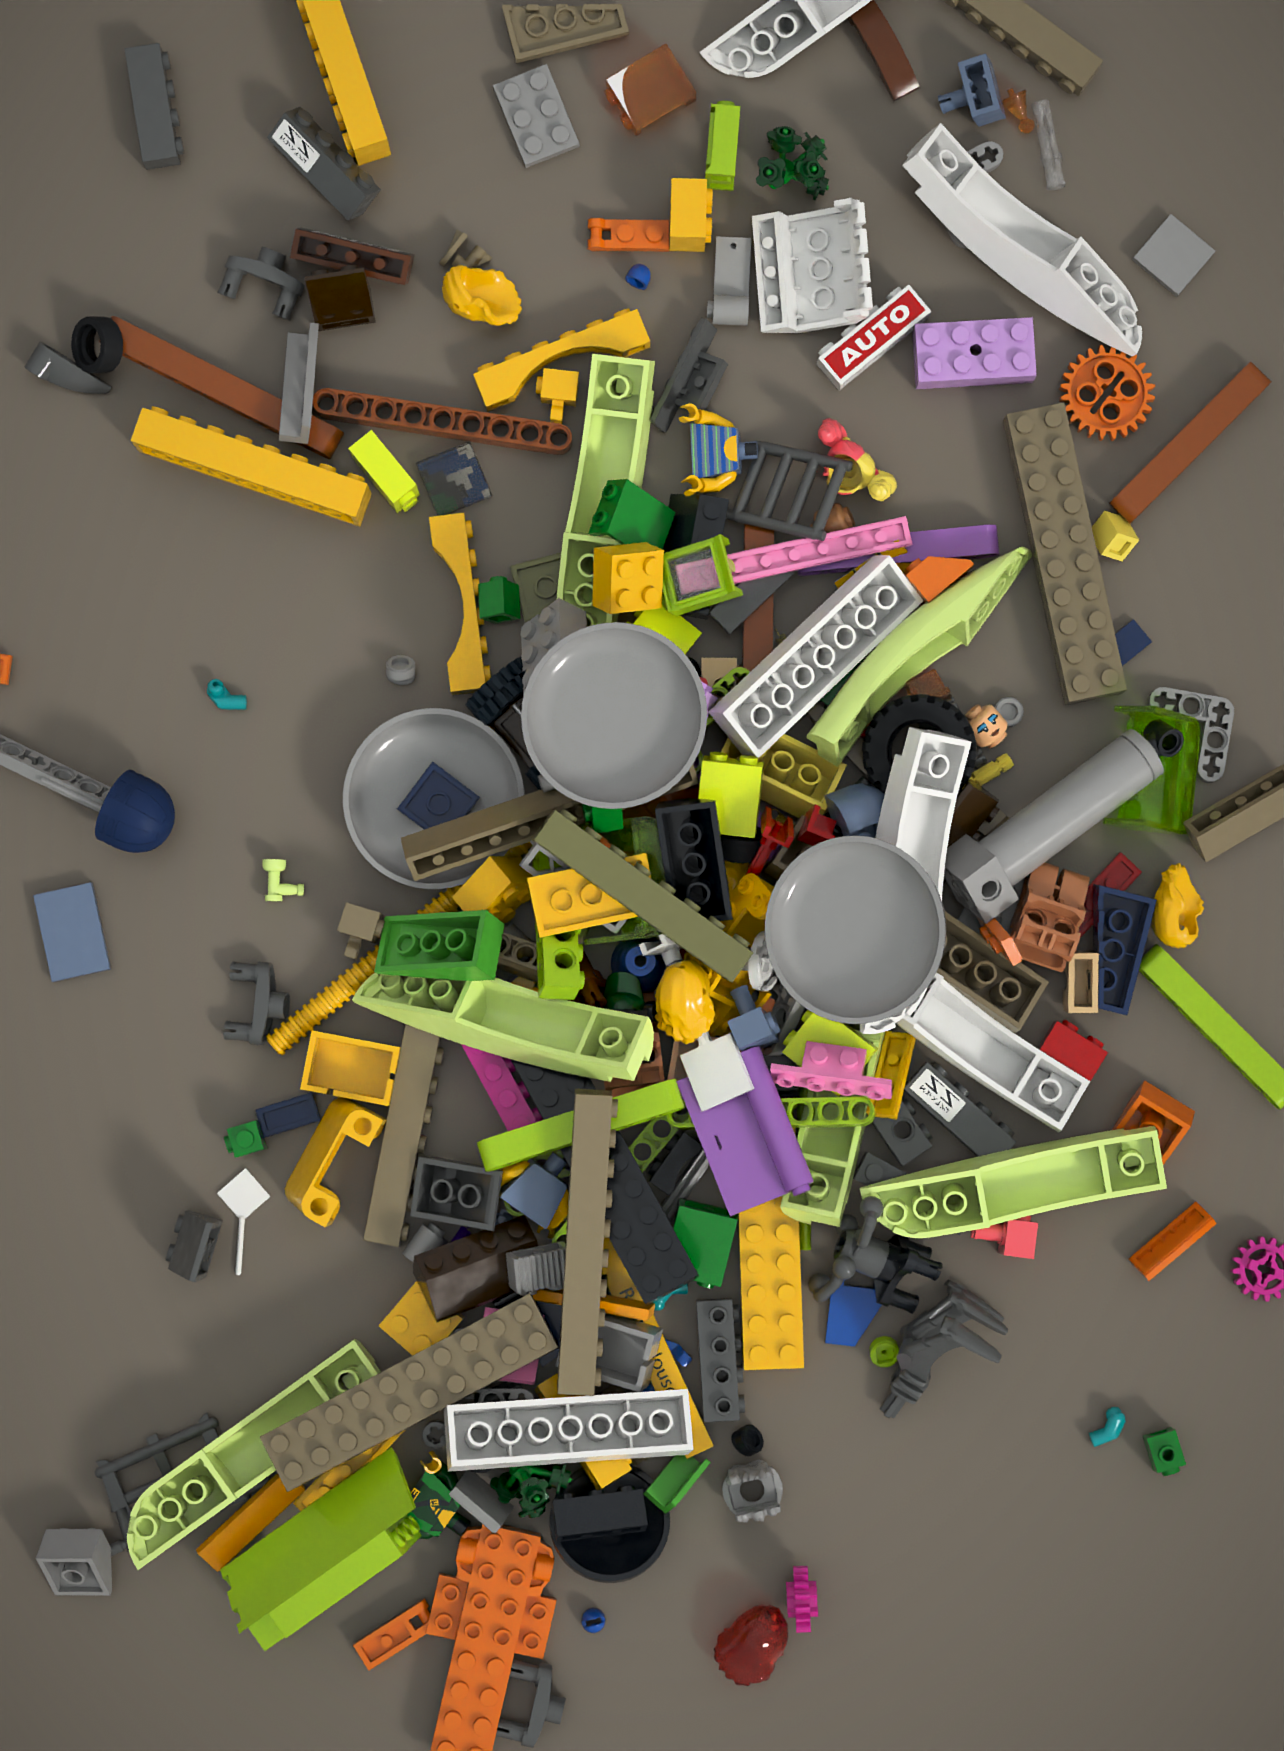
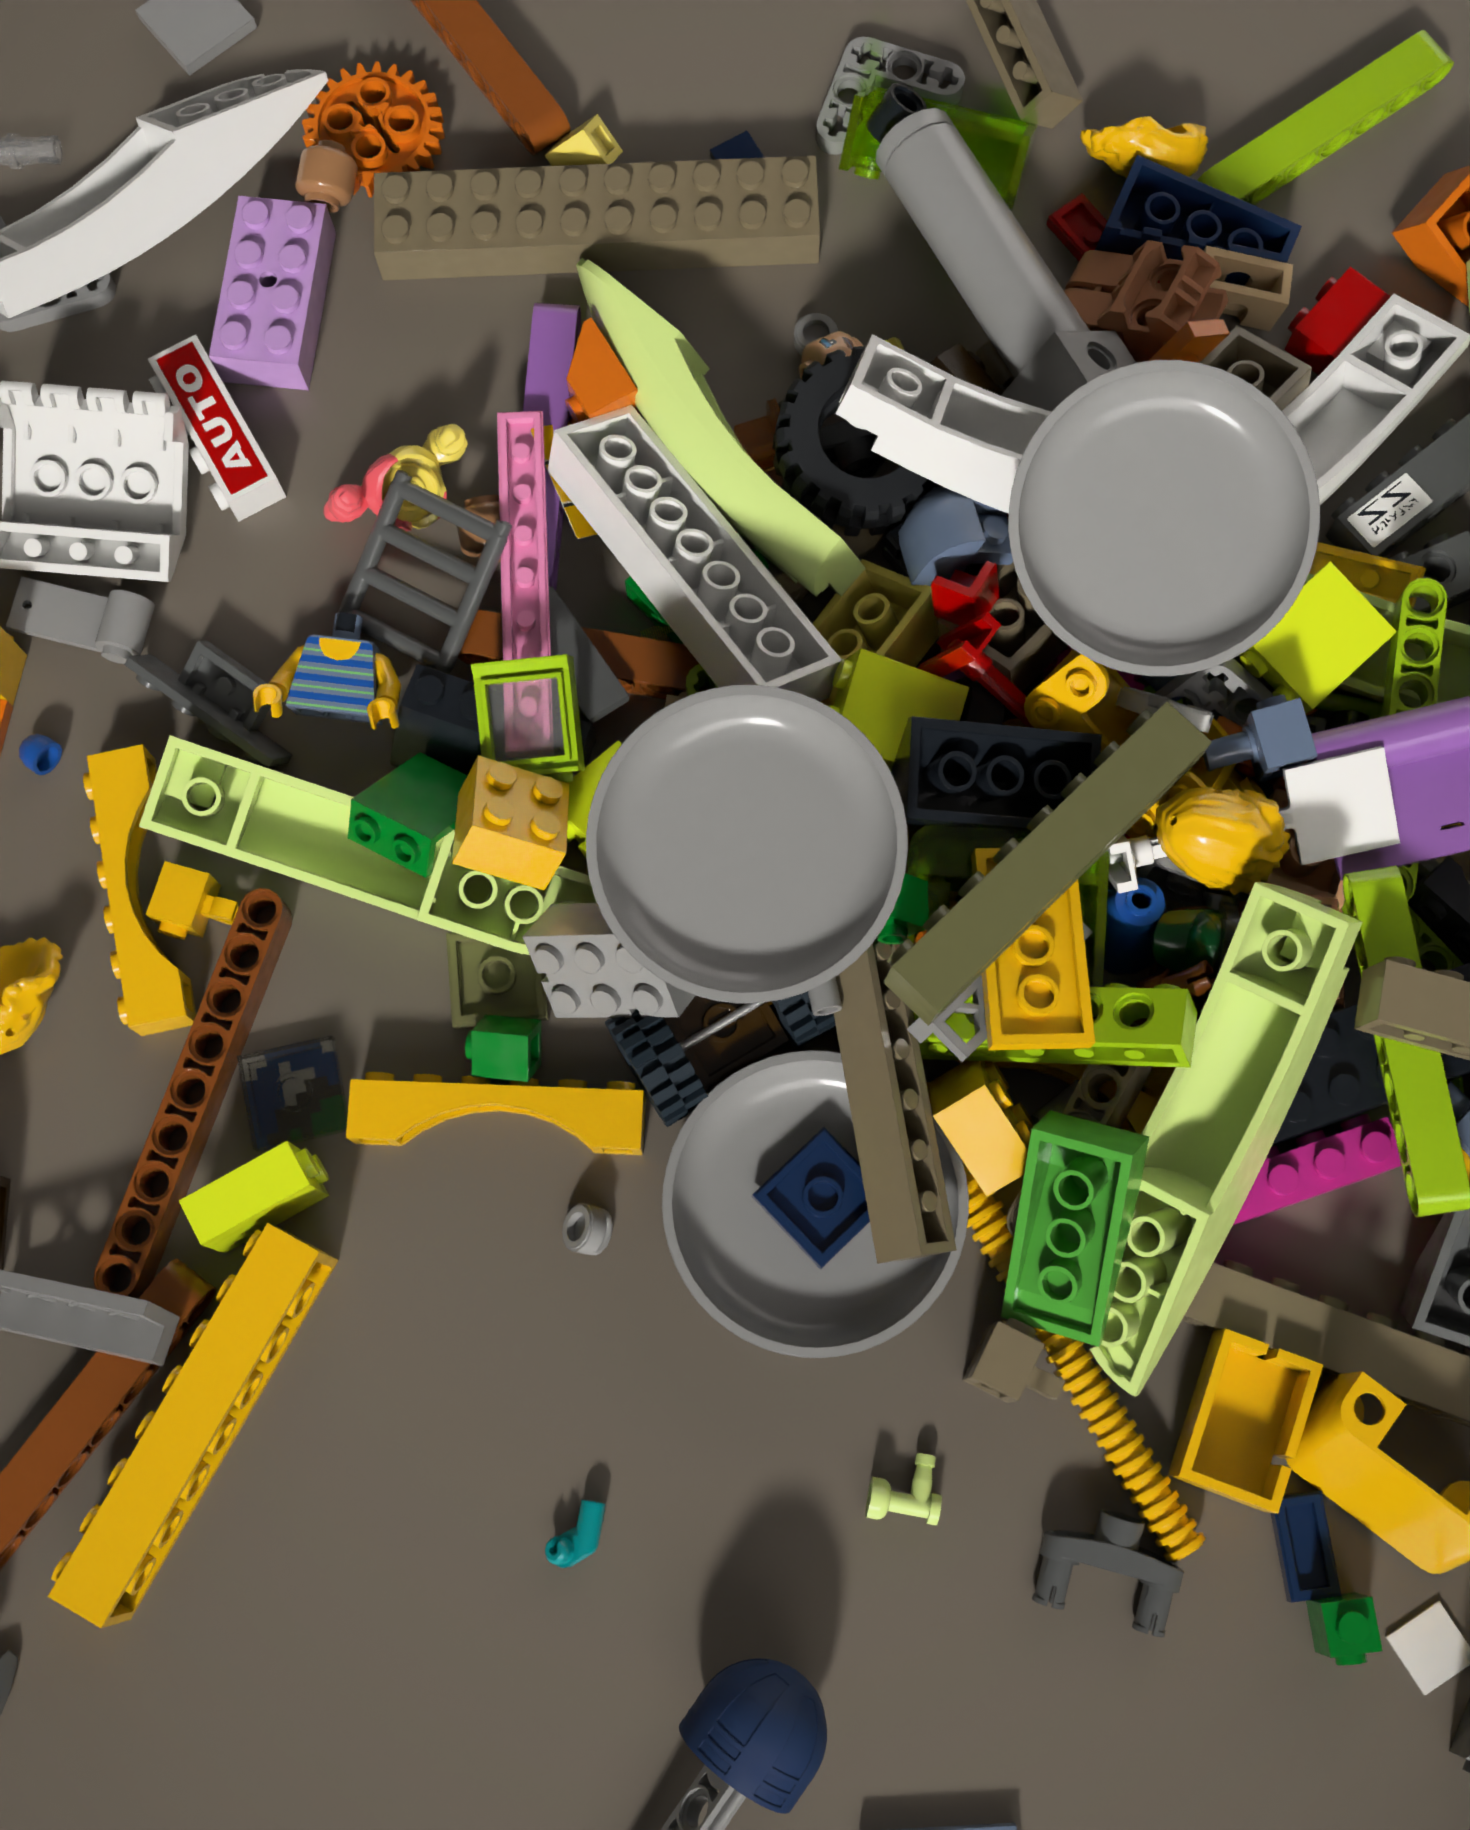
camera: 75 degrees left, 10 degrees down
(832, 1069) = (1357, 624): bright pink bracket -> none
(1056, 371) = (326, 175): none -> medium nougat head

